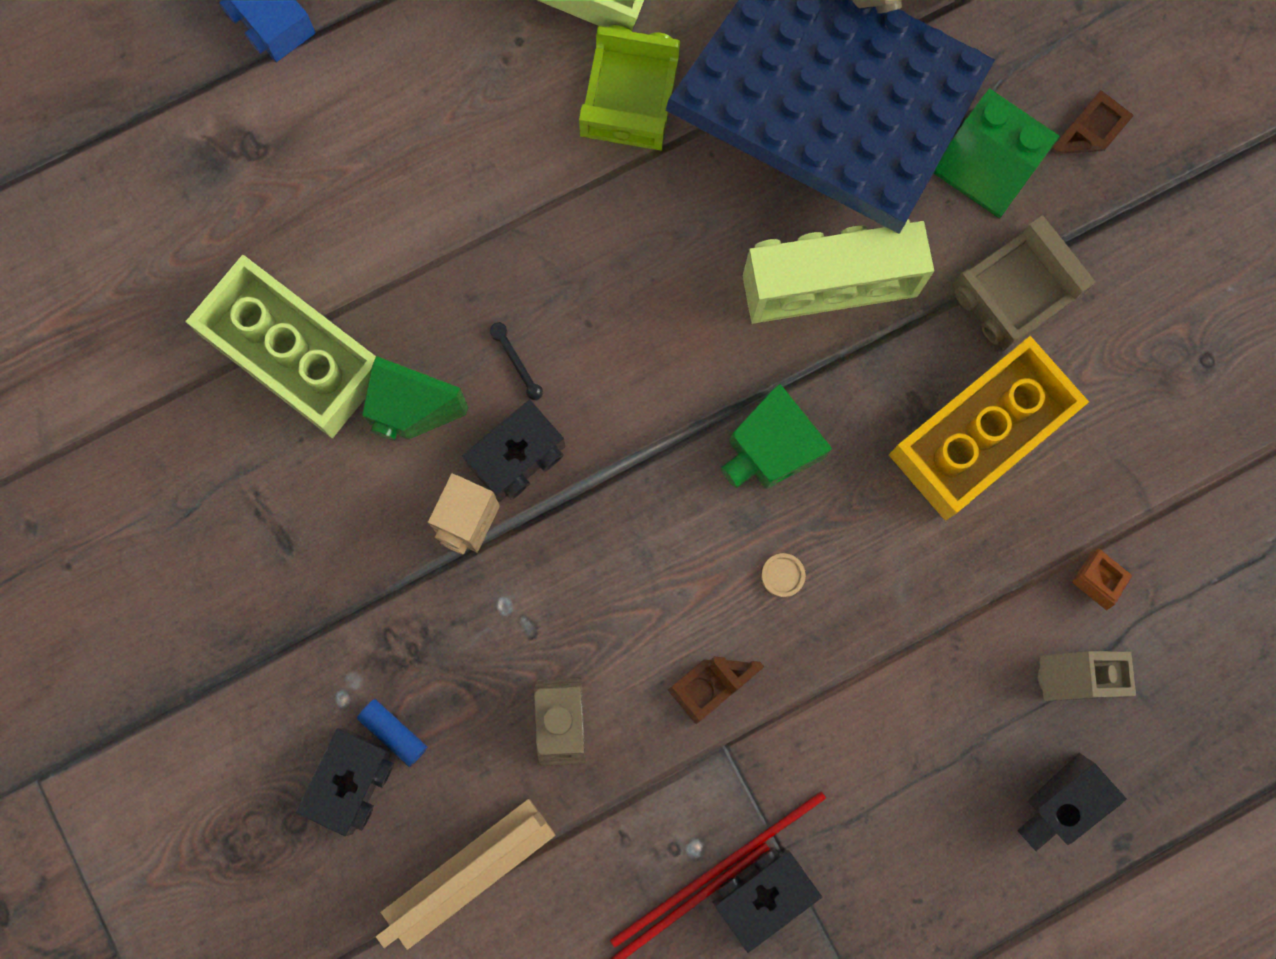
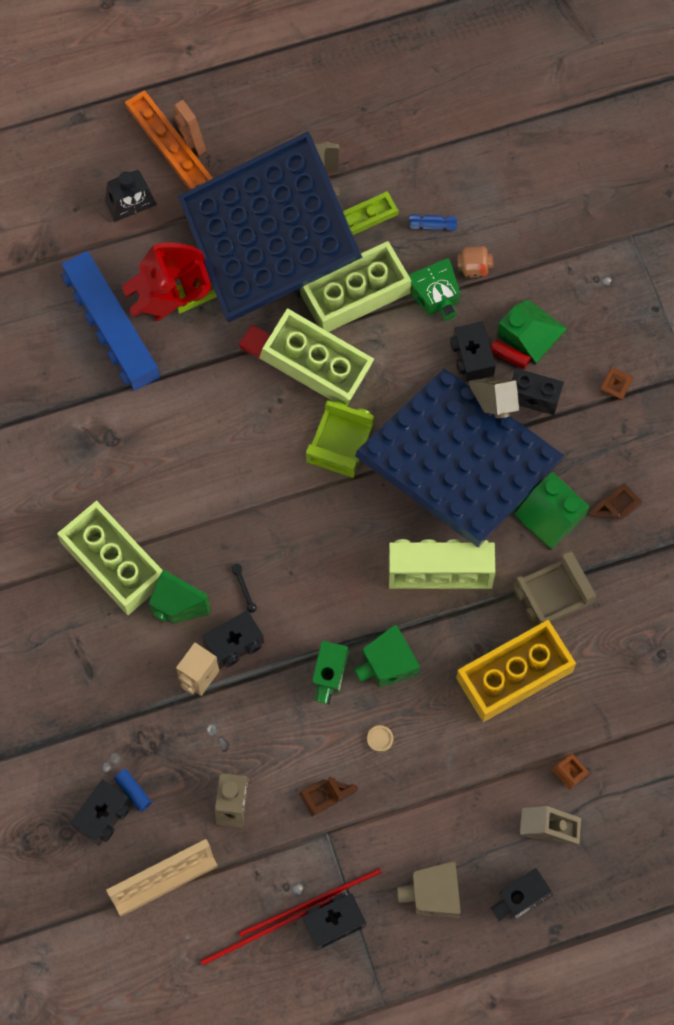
camera: 15 degrees right, 10 degrees down
(690, 459) = (332, 659): none -> green torso
(920, 819) = (433, 891): none -> dark tan torso

